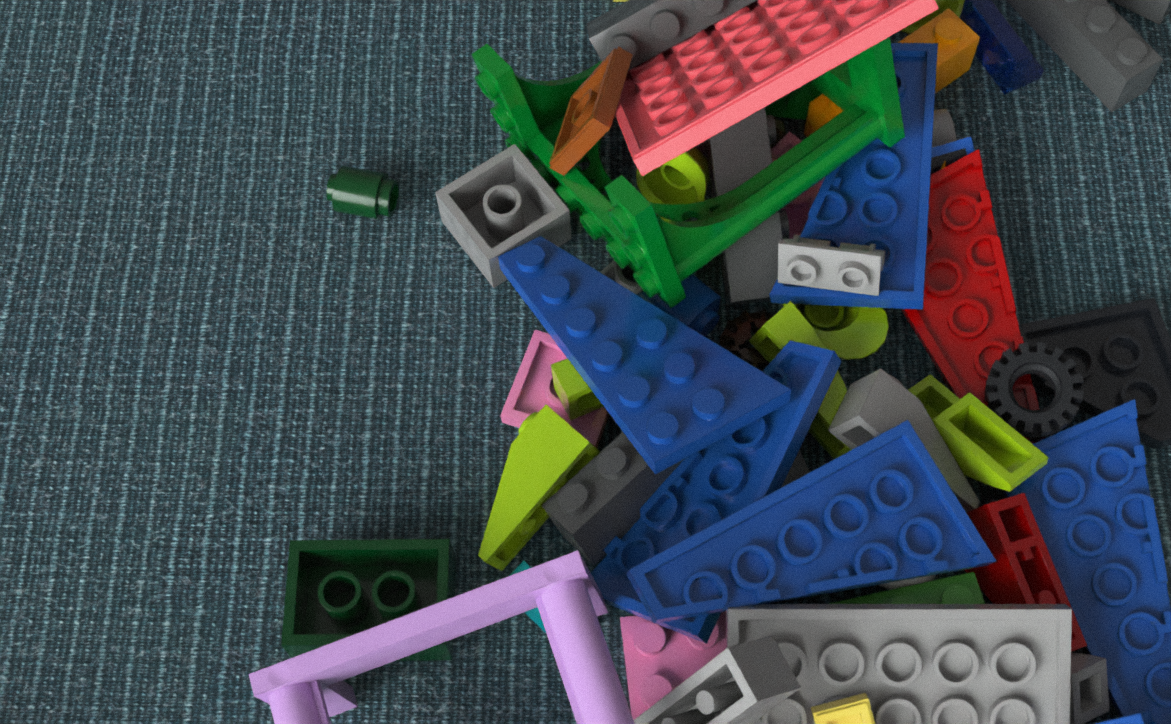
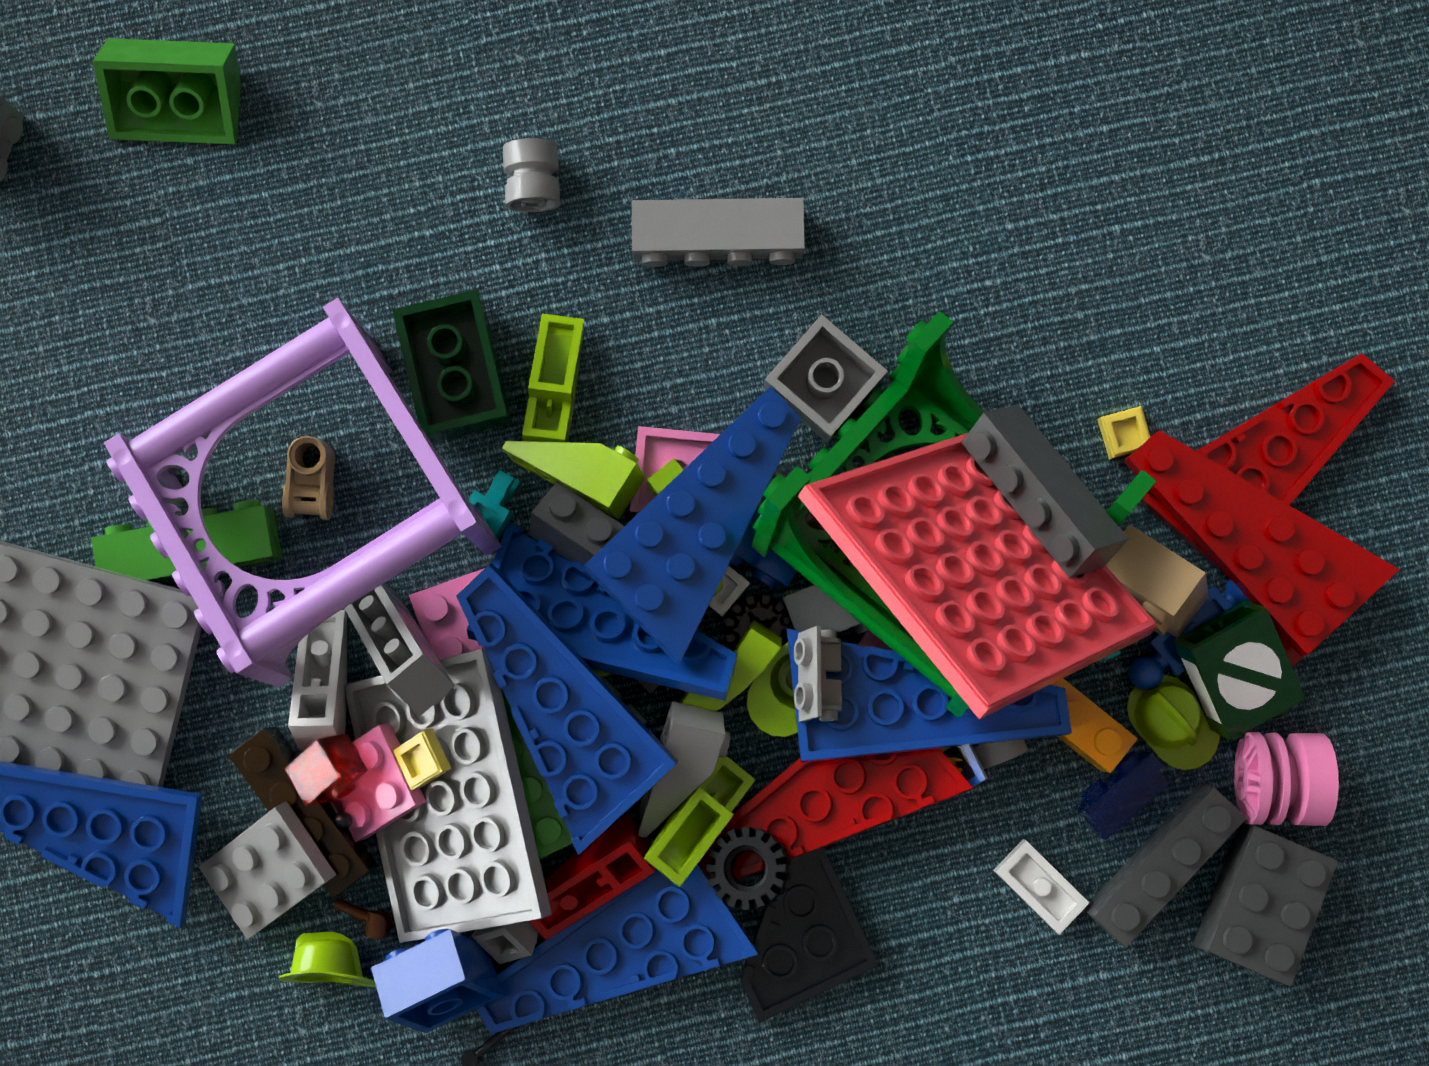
camera: 70 degrees right, 20 degrees up
(169, 465) = (531, 169): none -> light grey wheel
(307, 292) = (718, 231): none -> light grey brick
(363, 192) = (824, 248): dark green brick -> none
(420, 497) = (553, 379): none -> lime slope
(590, 111) = (914, 432): dark orange tile -> none
(1084, 135) = (1041, 886): none -> white plate

